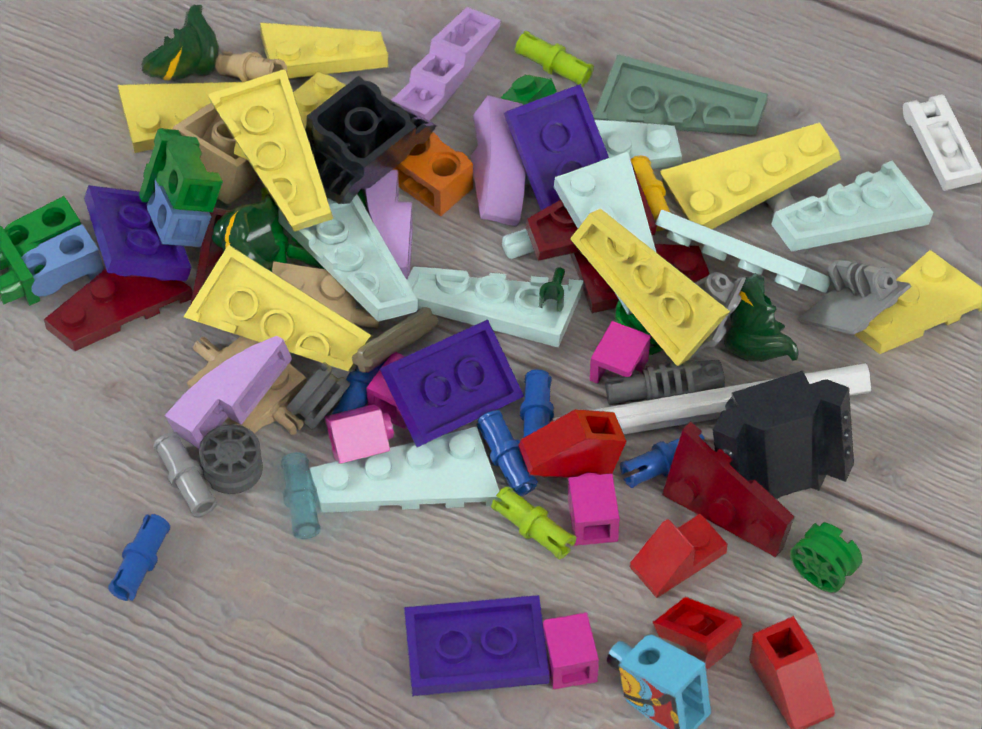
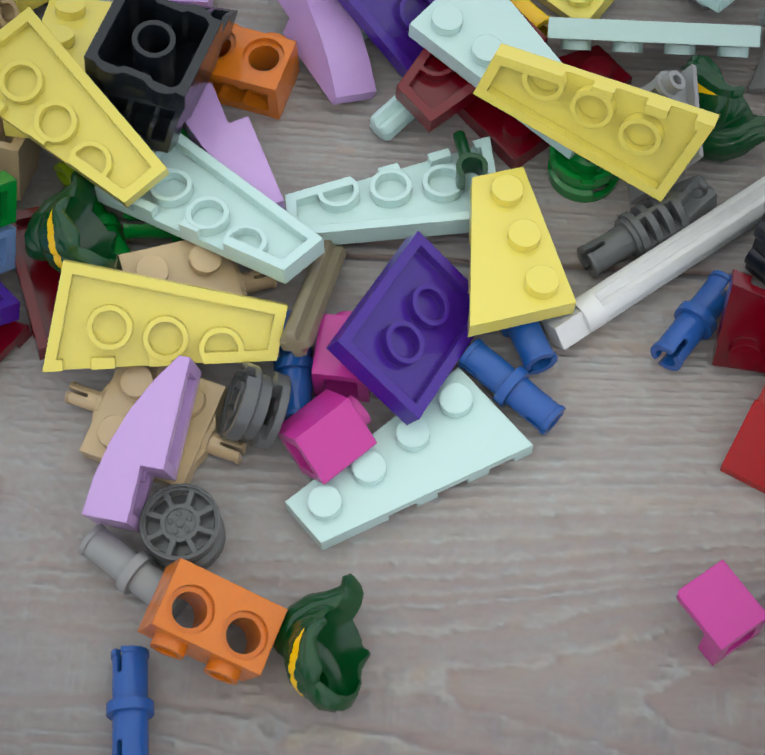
camera: 20 degrees left, 10 degrees up
(228, 511) = (215, 606): none -> orange brick
(287, 565) = (324, 646): none -> dark green hair
(300, 496) = (291, 542): clear light blue pin -> none
(476, 645) = (601, 652): dark purple plate -> none
(533, 522) = (587, 462): lime pin -> none
(547, 363) = (512, 257): none -> light yellow wing
(574, 445) = (595, 348): red slope -> none
(593, 509) = (650, 416): dark pink brick -> none
(620, 351) = (582, 208): dark pink panel -> none

